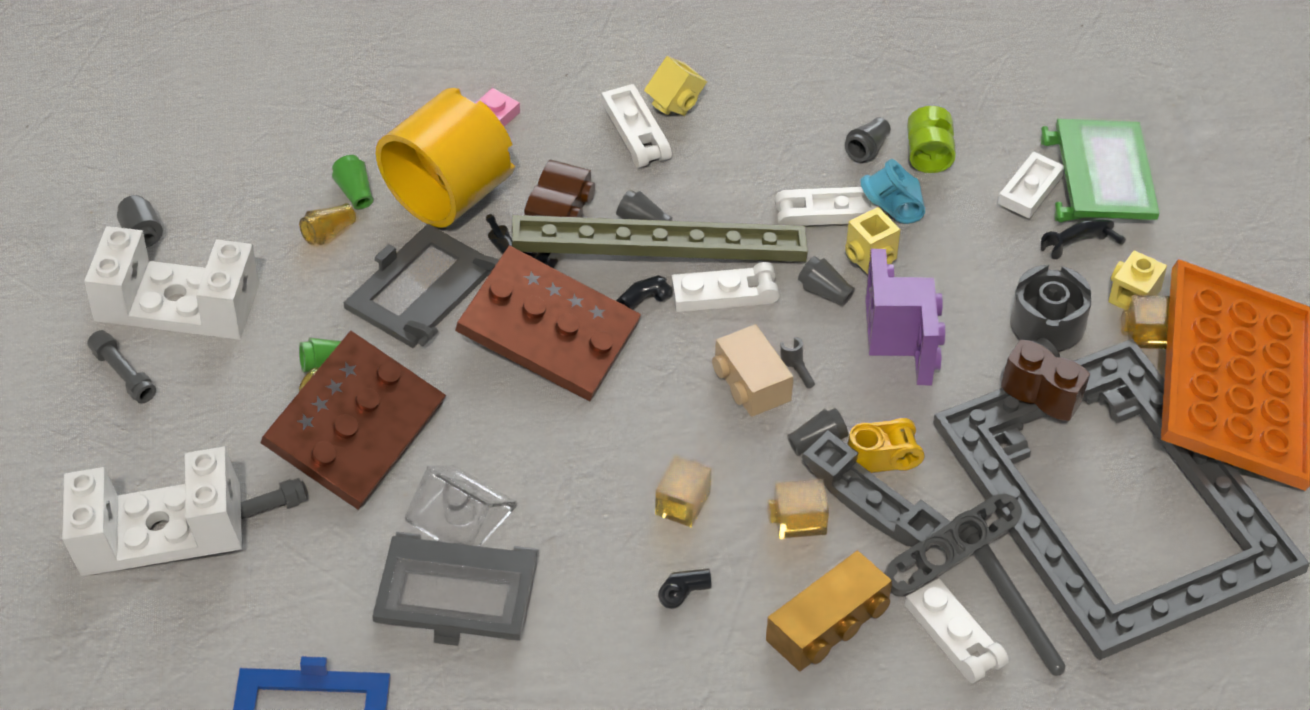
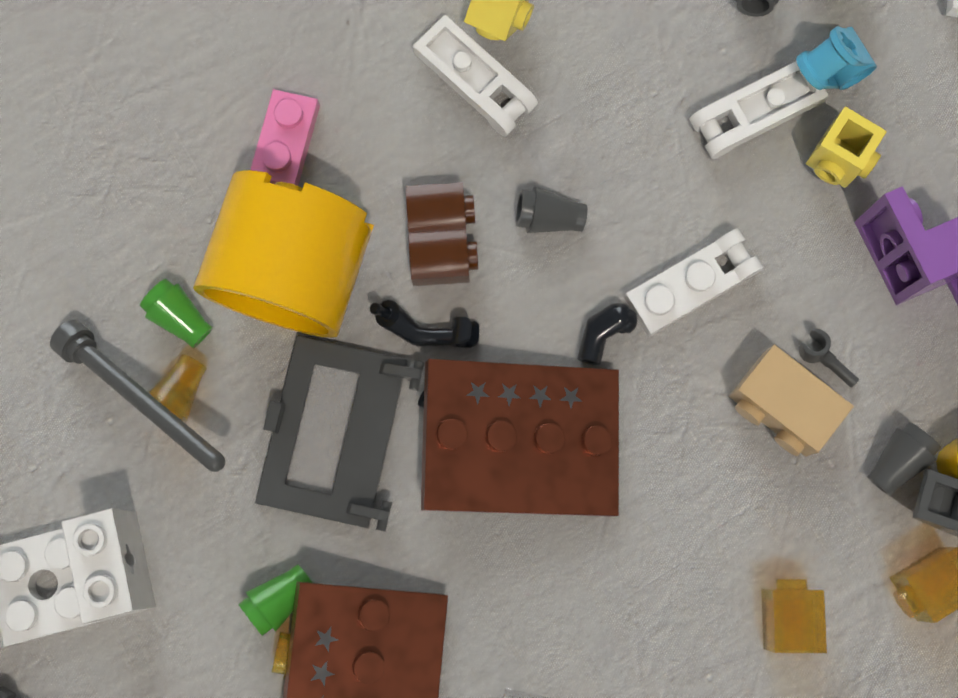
camera: 20 degrees left, 30 degrees up
(278, 176) = (77, 344): none -> dark grey piece
(659, 238) = (588, 253): olive plate -> none
(822, 279) = (807, 225): dark grey cone -> none

